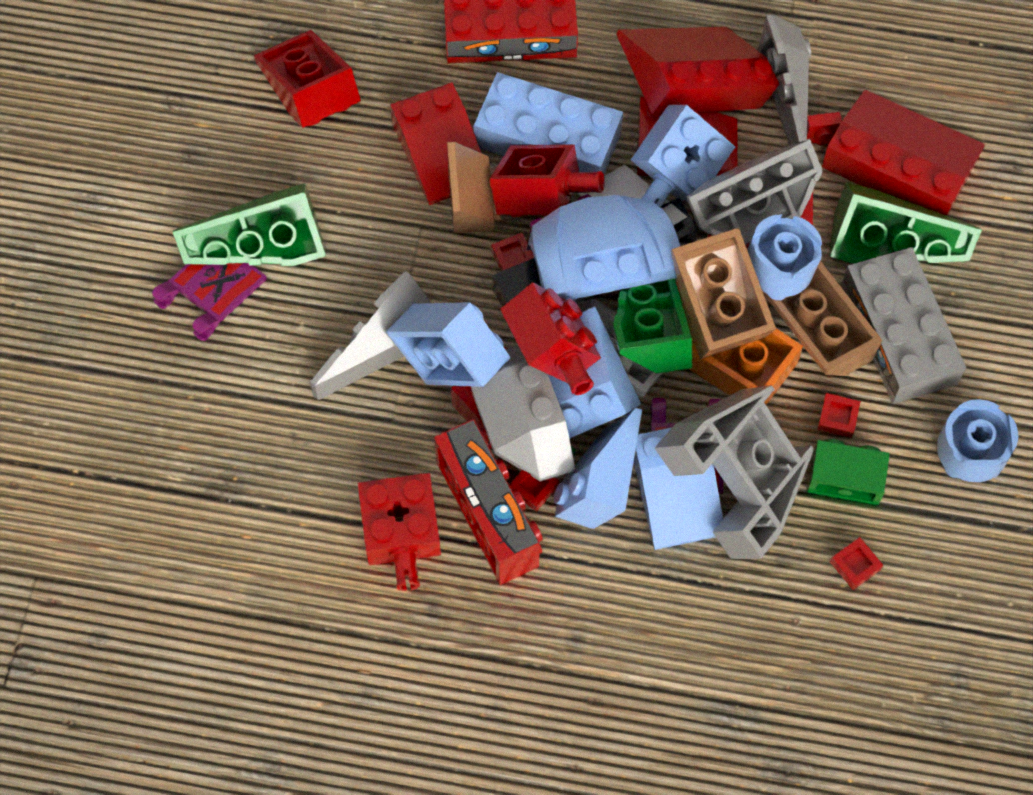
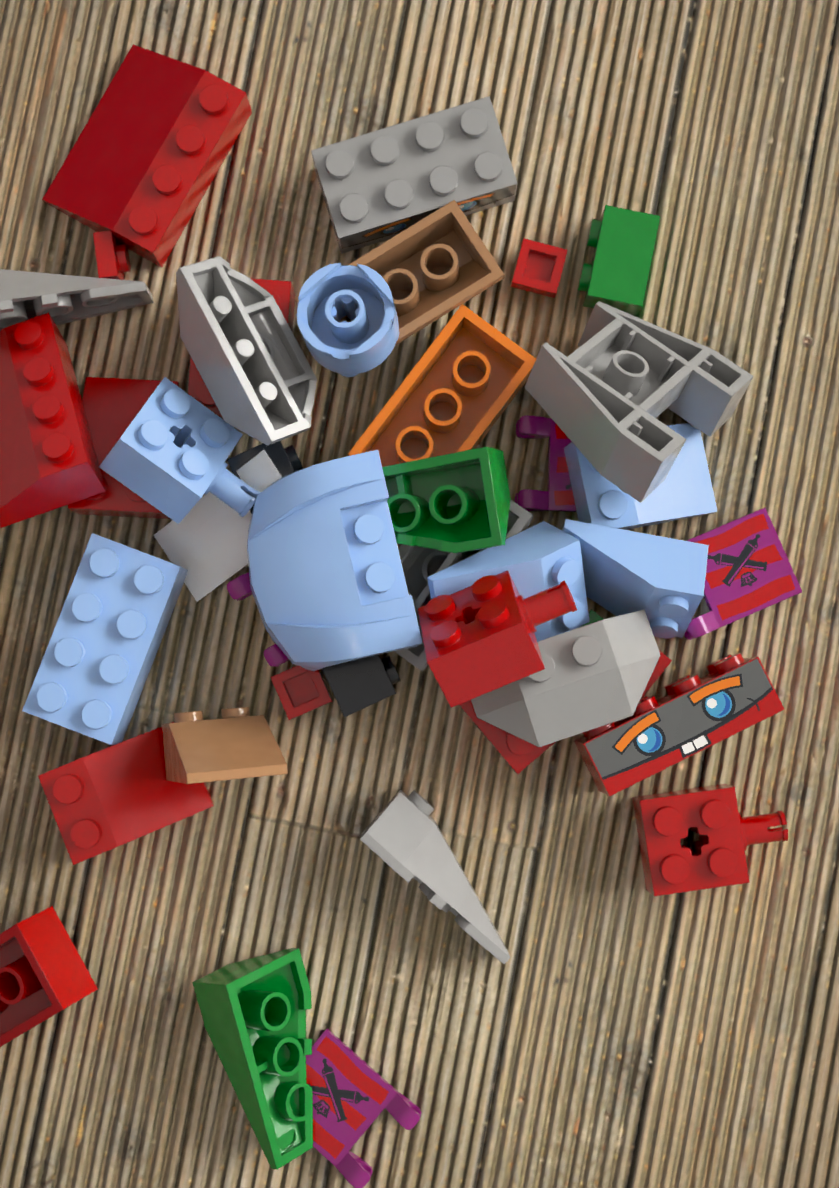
camera: 90 degrees left, 20 degrees up
(449, 344) = (471, 775): light blue brick -> none
(540, 179) = (202, 651): red brick -> none
(607, 563) = (743, 572): none -> flag
(721, 293) = (416, 403): medium nougat slope -> none
(856, 563) = (740, 260): red plate -> none
(878, 224) = (263, 188): green wedge -> none
(977, 441) = (590, 68): light blue brick -> none

